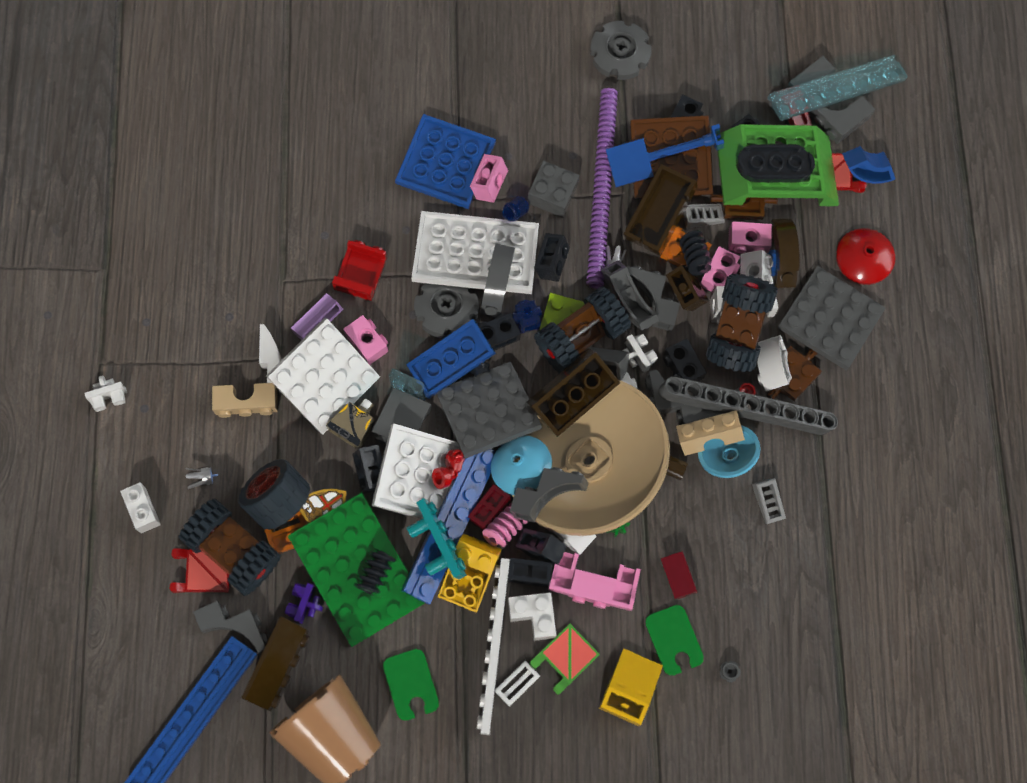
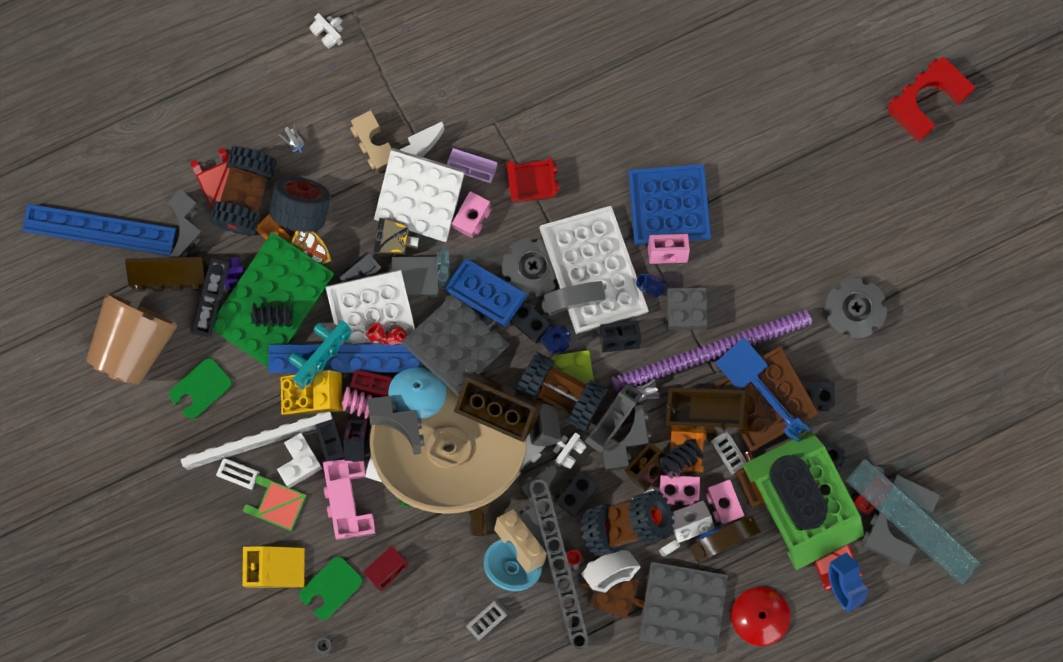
camera: 75 degrees right, 5 degrees up
(140, 507) = (245, 105): white brick -> none
(324, 631) = (209, 298): none -> black slope

